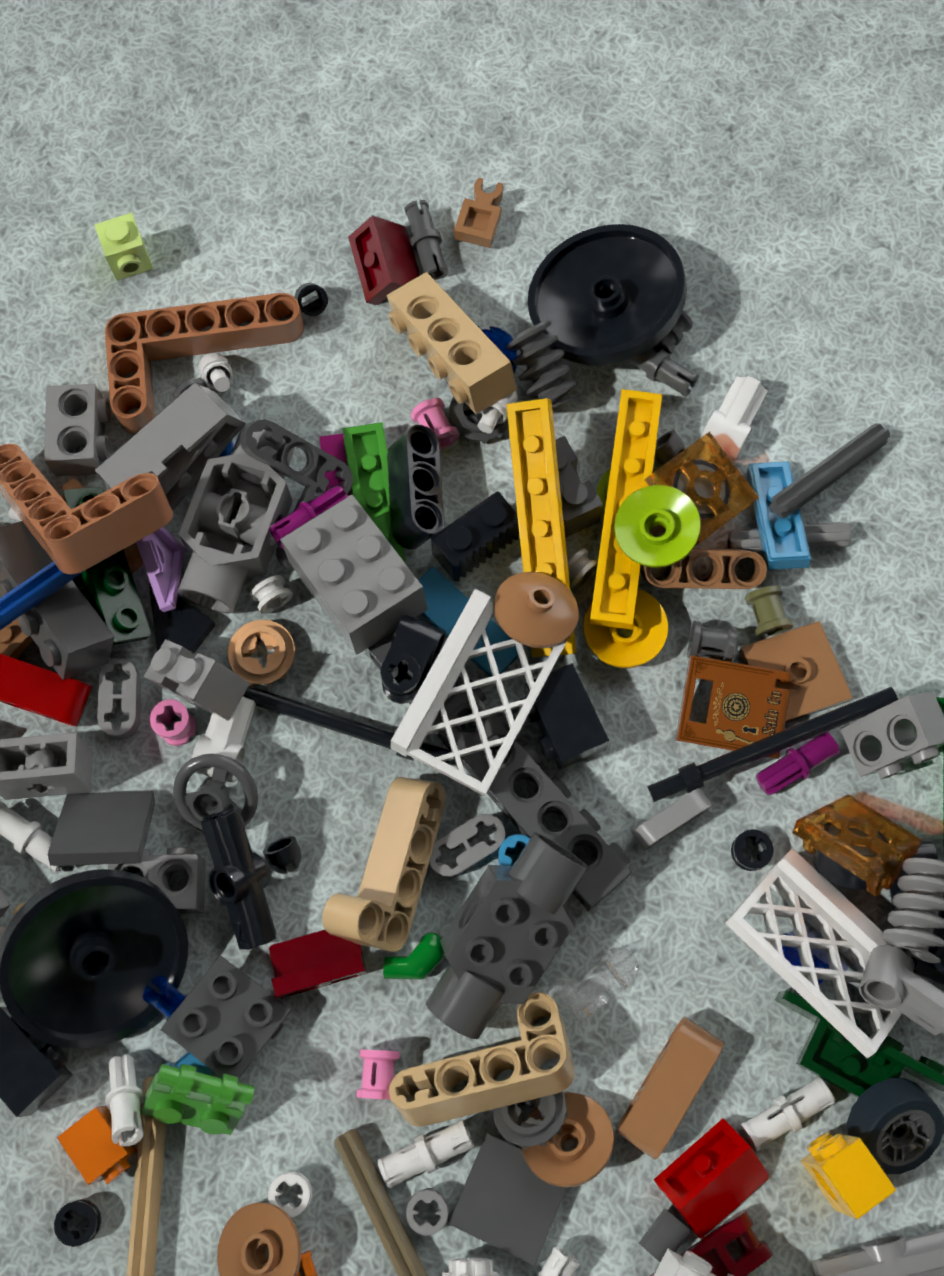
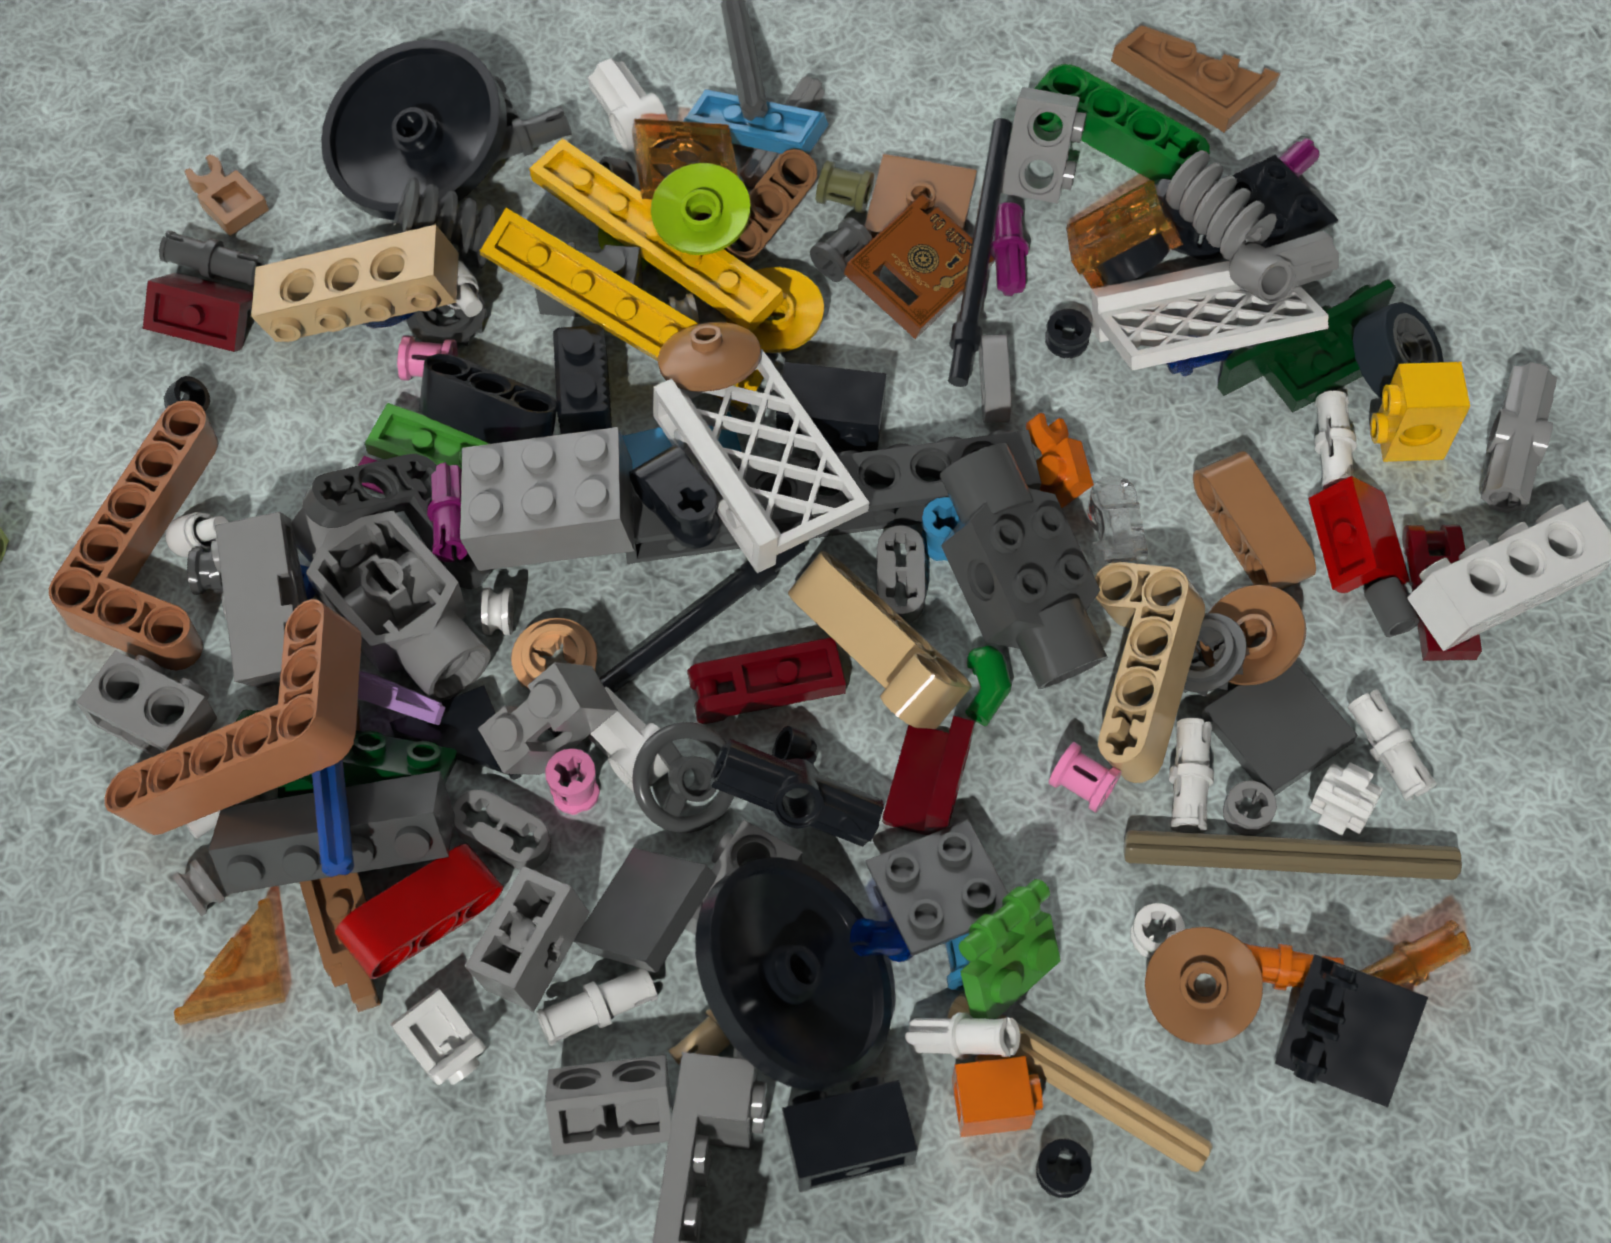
camera: 60 degrees left, 10 degrees down
(327, 804) = (767, 679): none -> dark red plate
(627, 911) = (1063, 460): none -> orange plate

